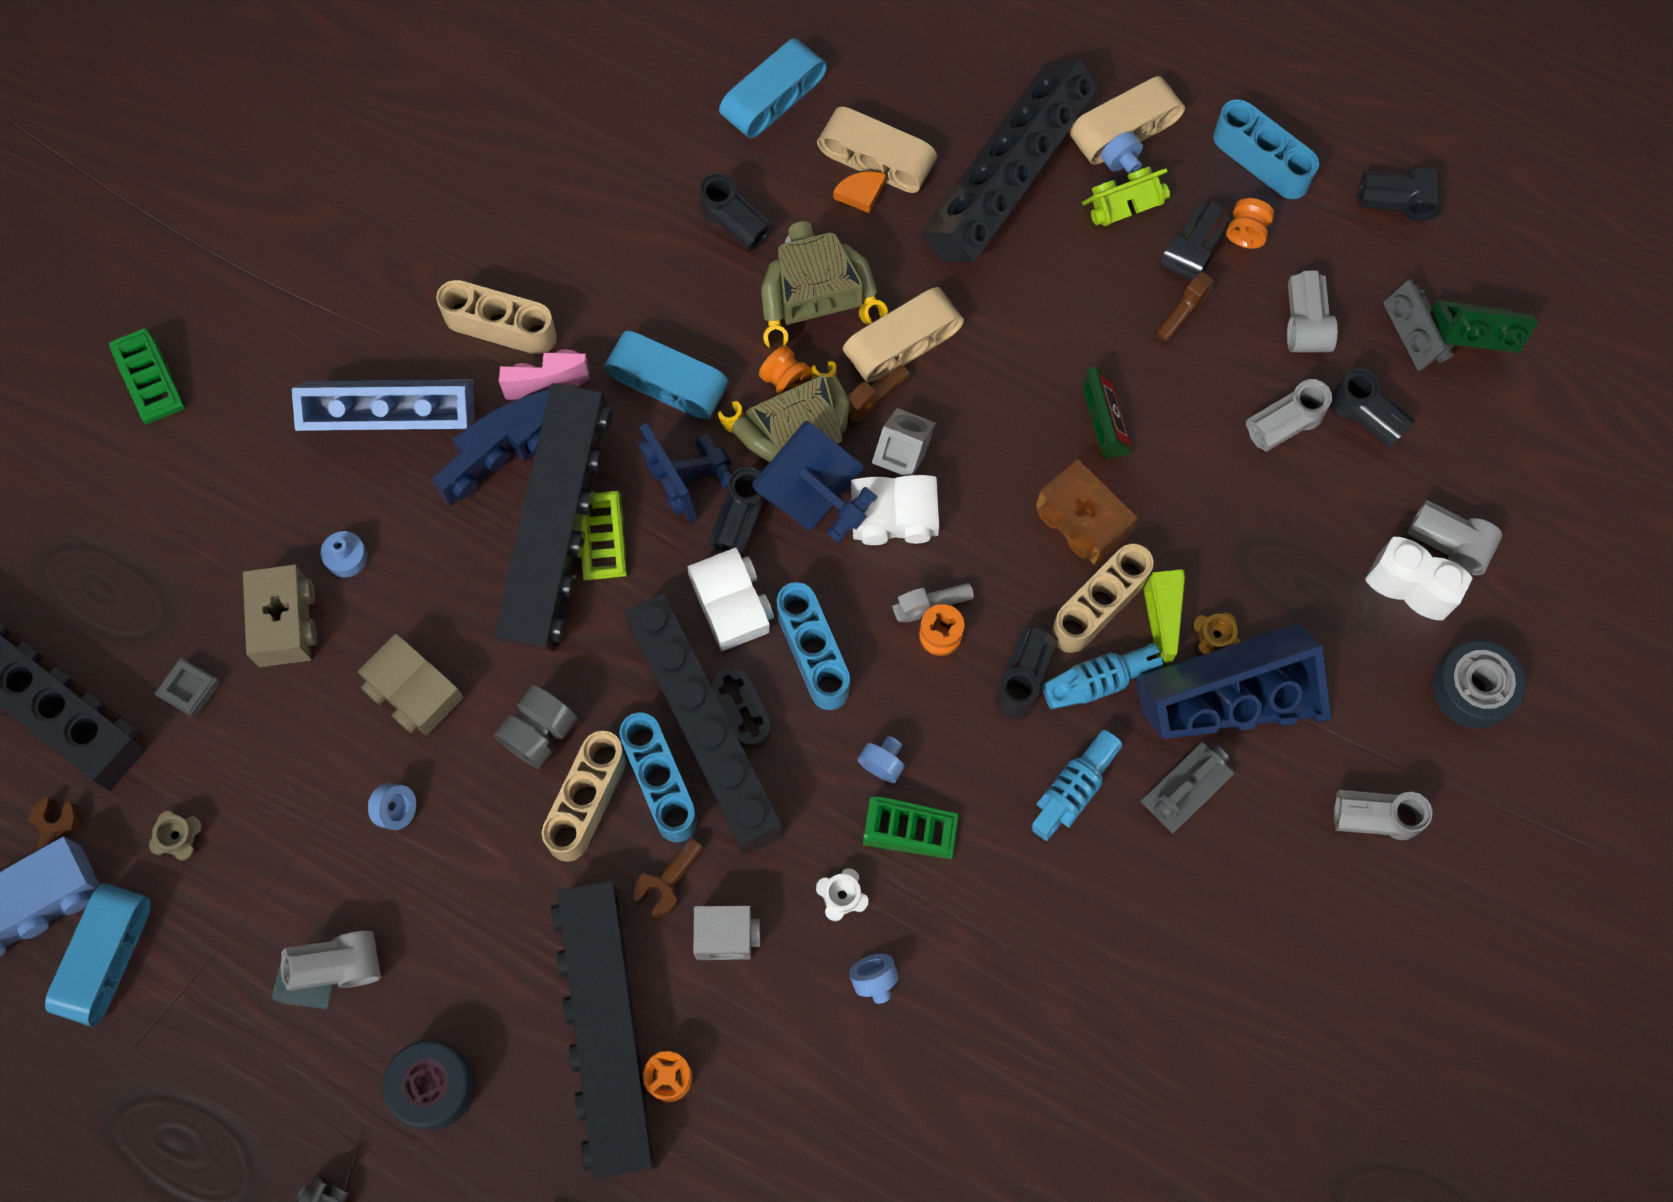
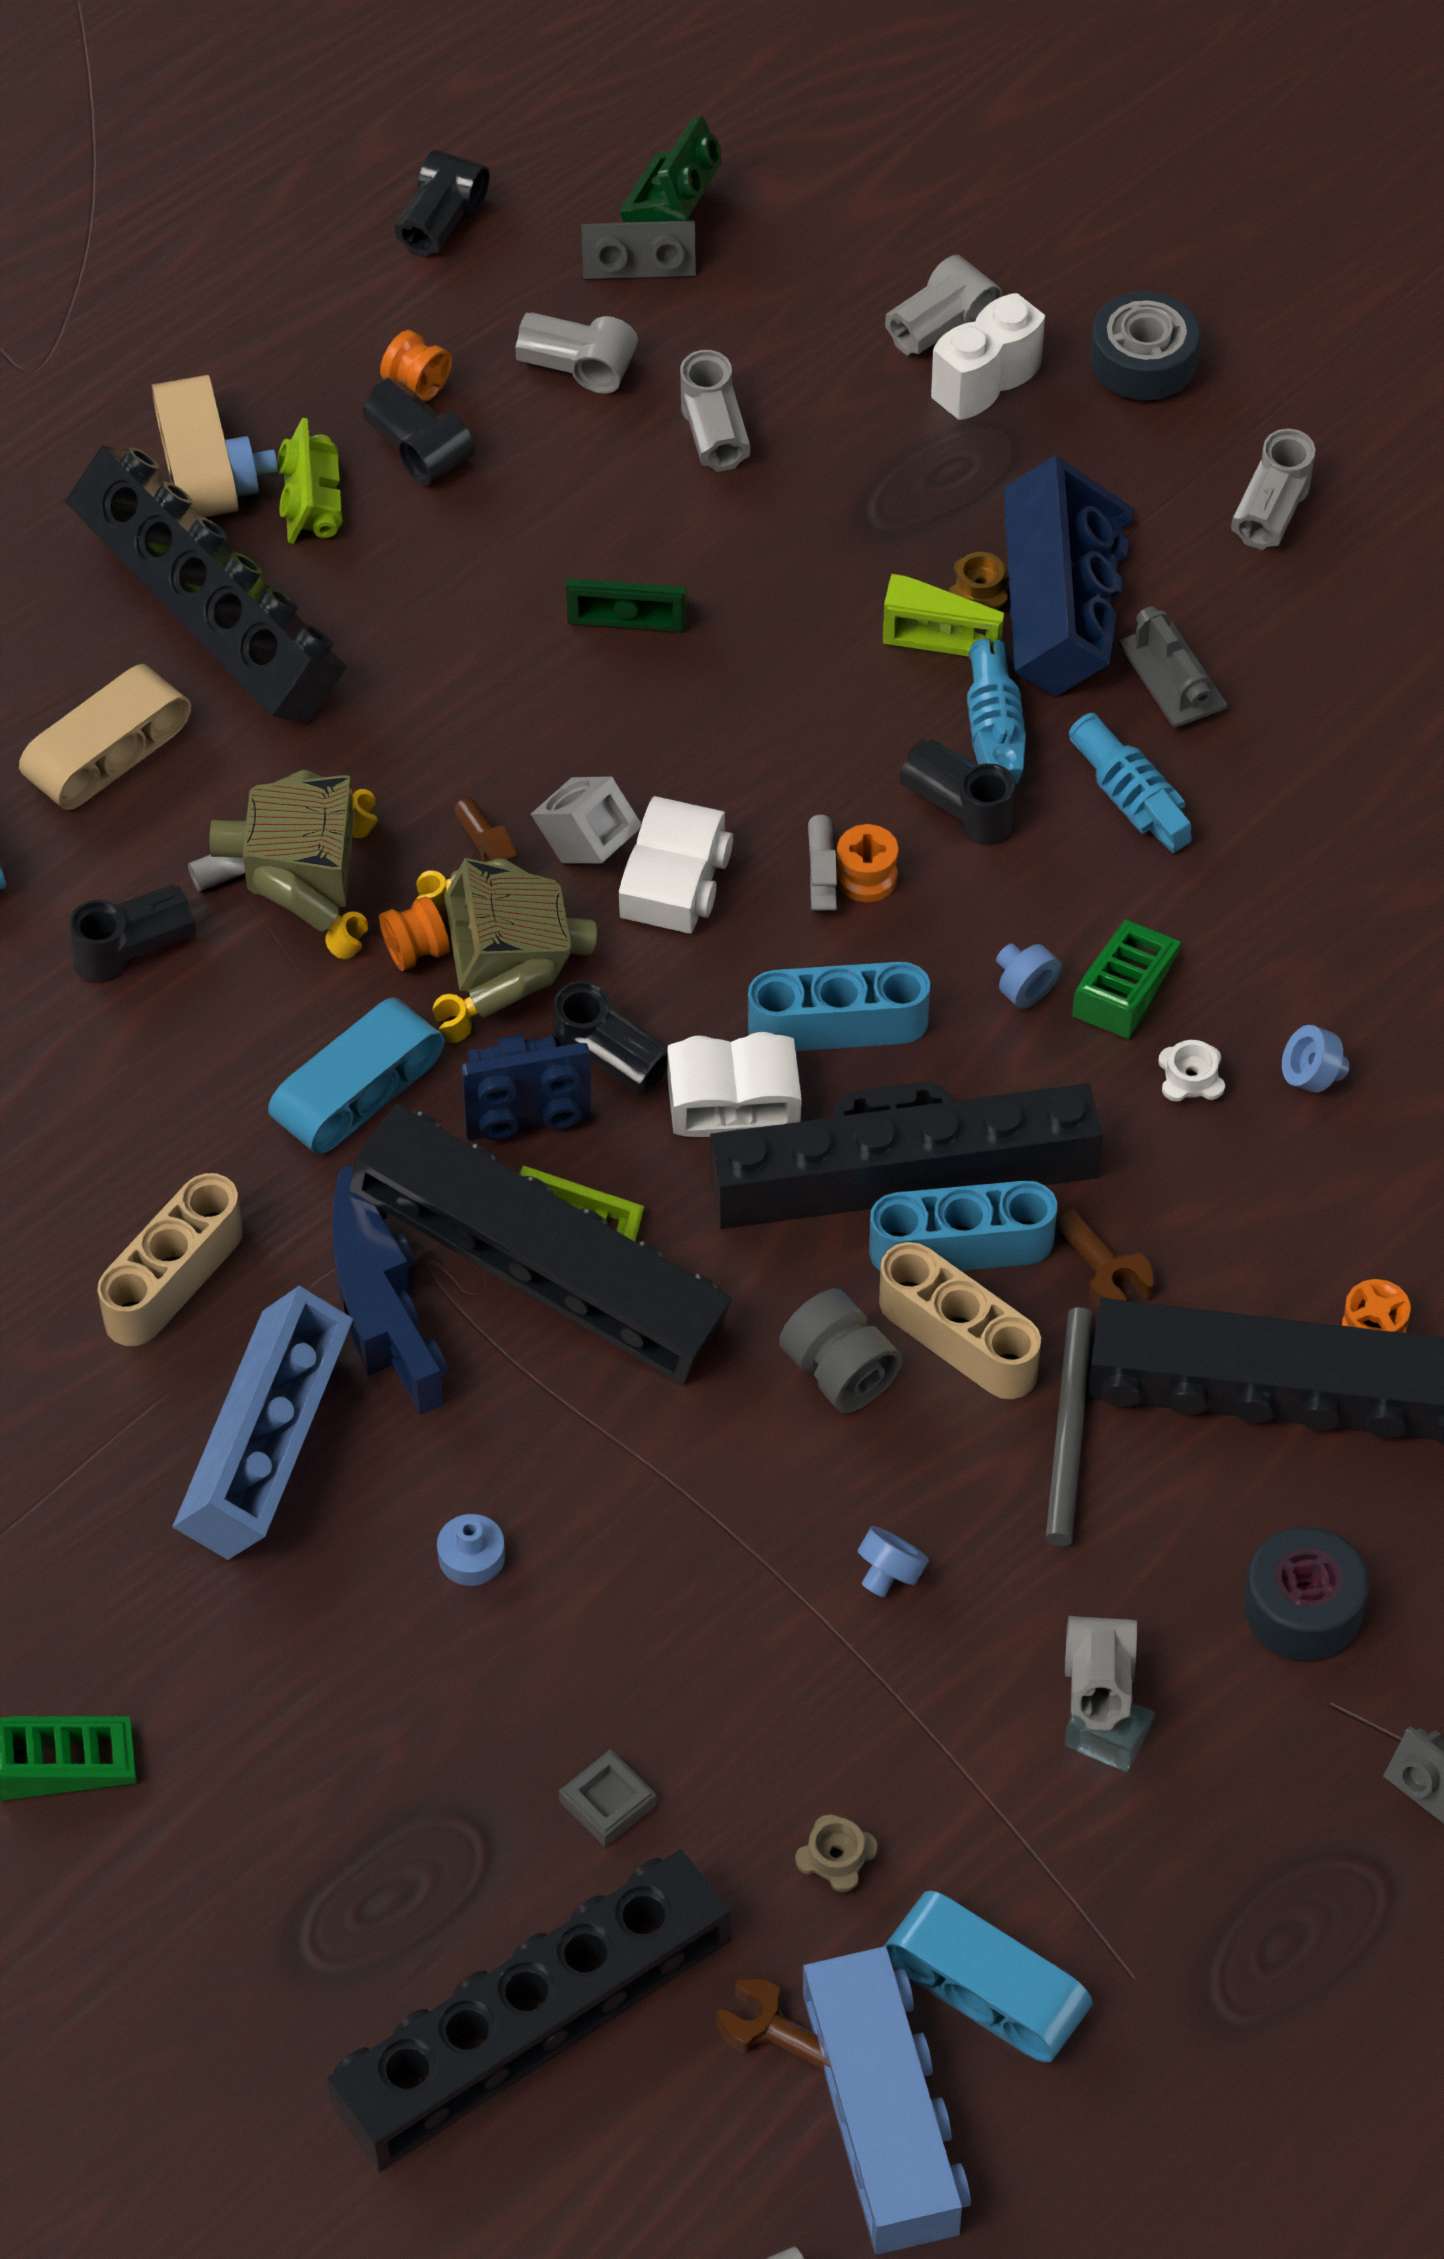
camera: 70 degrees left, 15 degrees down
(265, 598) = (514, 1656): dark tan brick -> none
(409, 685) = (717, 1496): dark tan brick -> none
(526, 892) = (1069, 1427): none -> dark grey bar
(562, 368) = (294, 1218): bright pink slope -> none
(724, 932) = (1203, 1208): light grey brick -> none
(810, 478) = (605, 932): dark blue plate -> none
(860, 190) = (157, 778): orange tile -> none
(903, 334) = (415, 786): tan beam -> none
(1079, 493) = (762, 660): clear orange brick -> none
(1108, 580) = (888, 675): tan beam -> none
(1192, 299) = (495, 457): reddish brown bar -> none
(1283, 152) = (311, 316): dark azure beam -> none
(1373, 408) = (739, 326): black piece -> none

